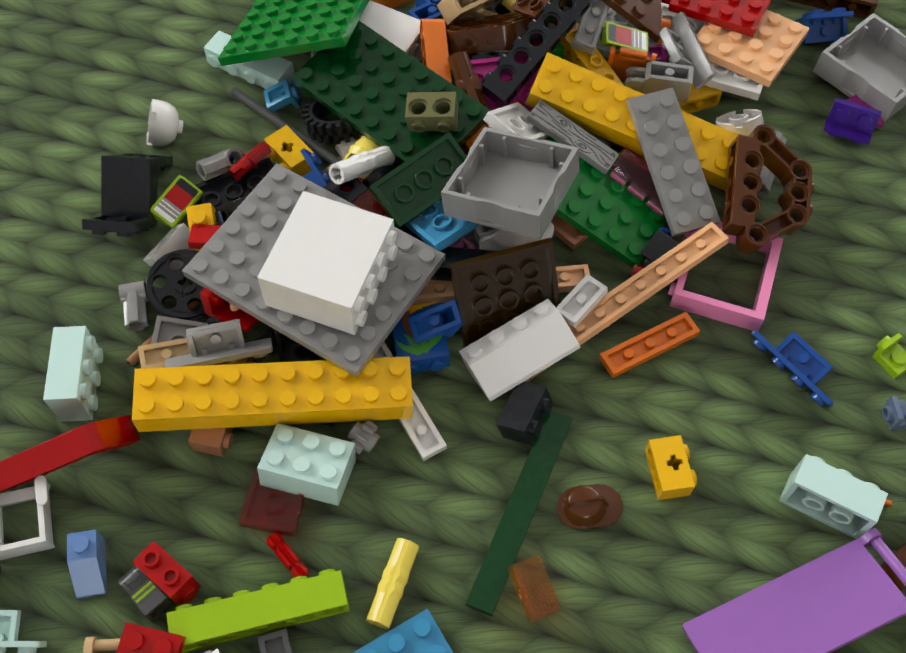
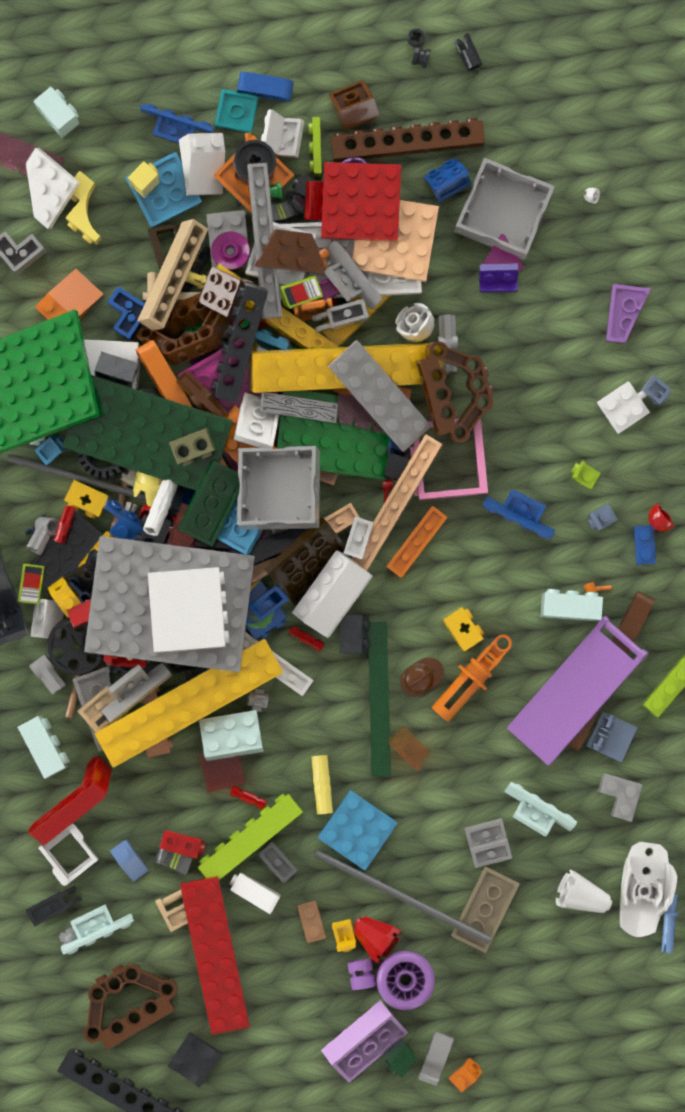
camera: 30 degrees left, 25 degrees up
(391, 27) = (116, 369): none -> hinge
(462, 396) = (306, 638): none -> red axle
(668, 526) = (478, 671): none -> orange piece

